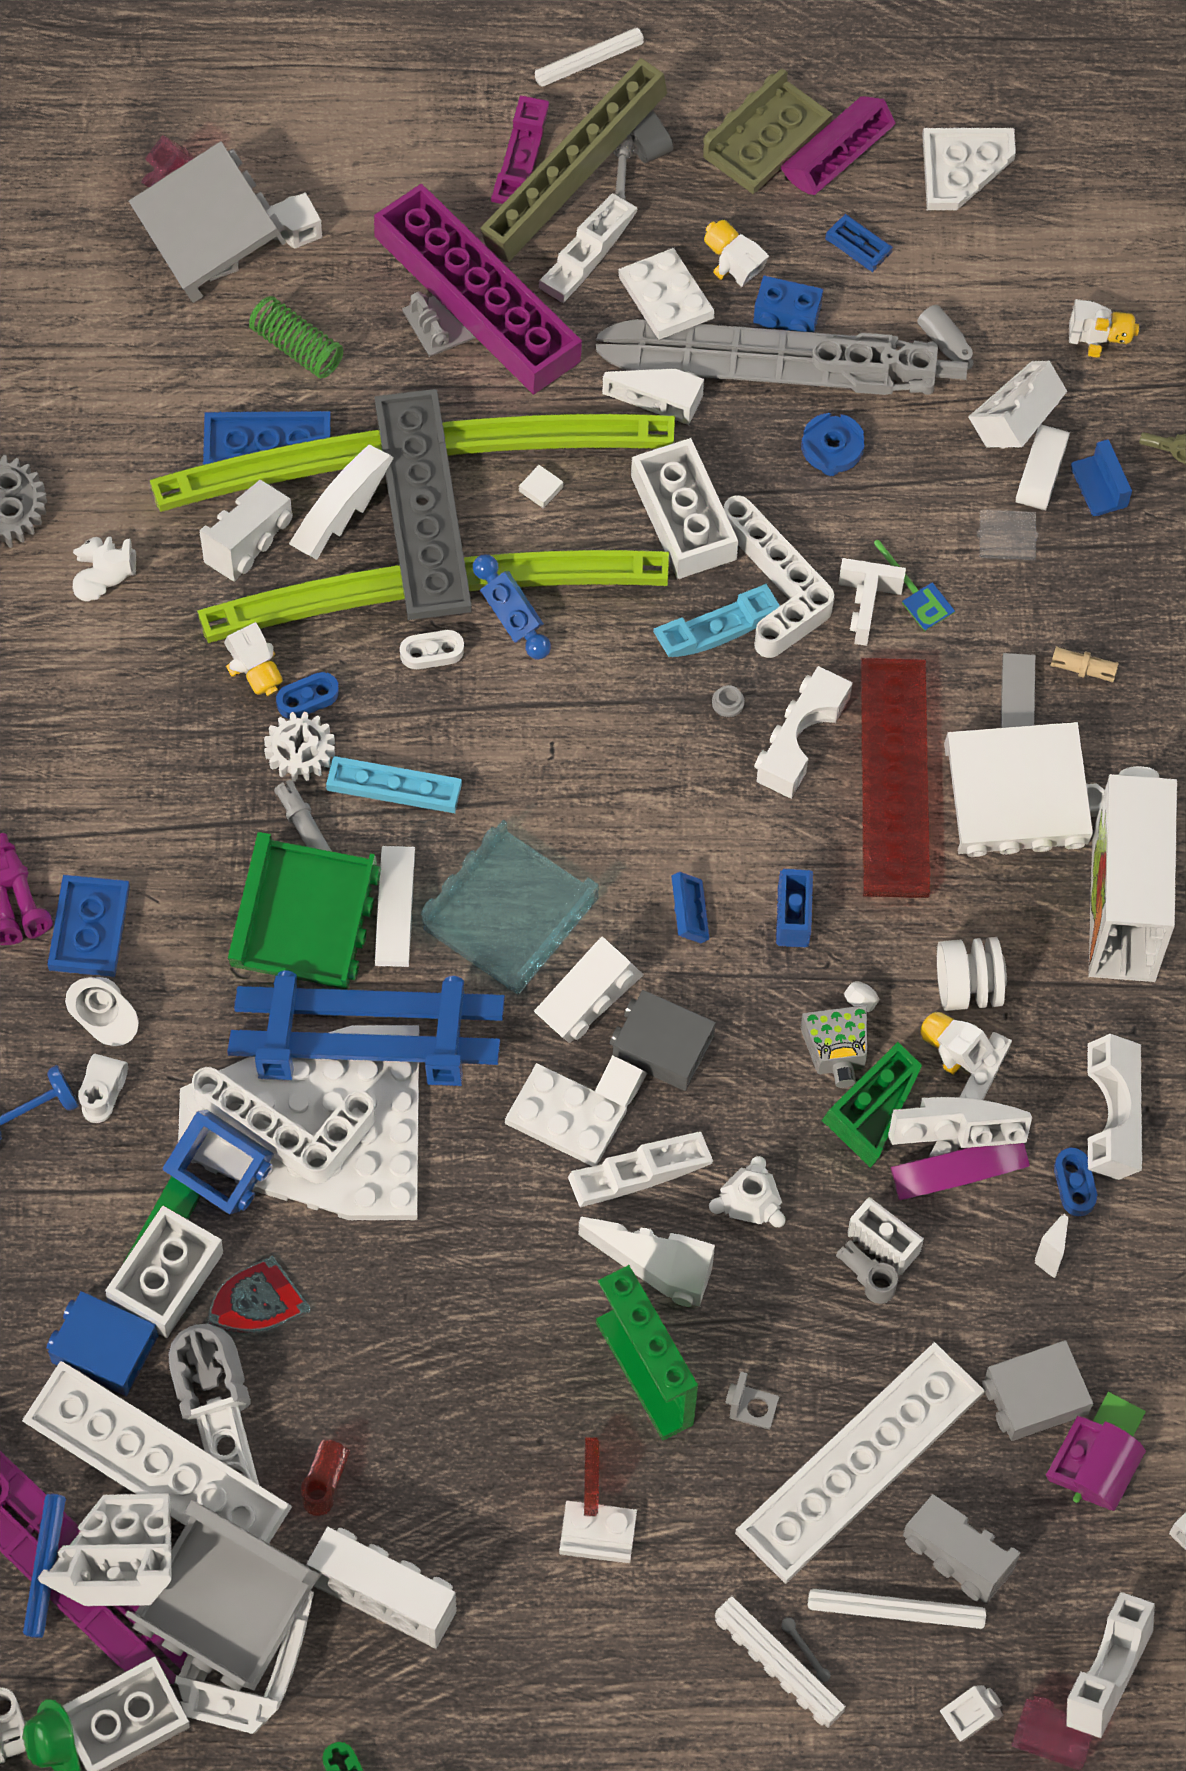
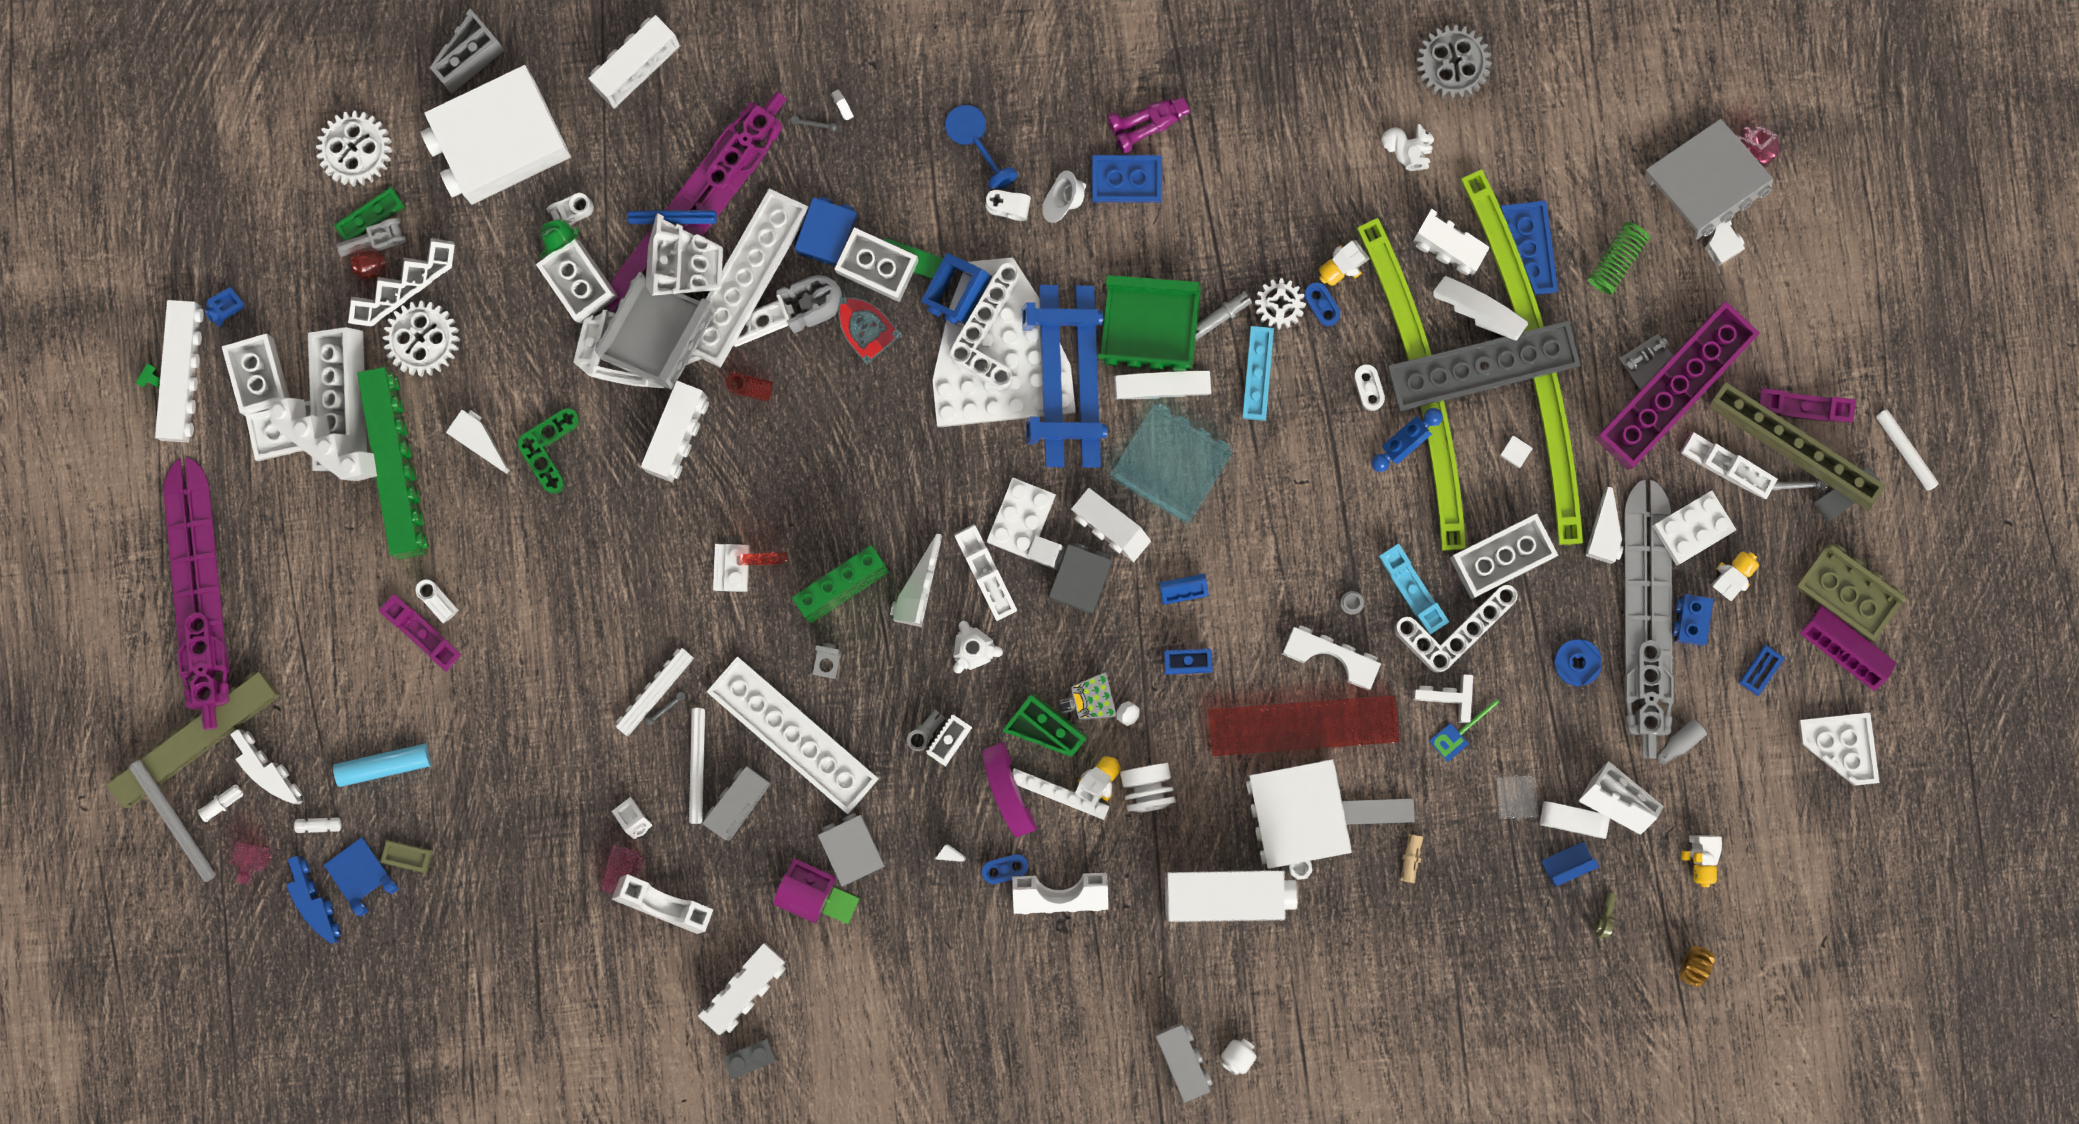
camera: 90 degrees right, 20 degrees up
(968, 1120) = (1032, 794): white slope -> none

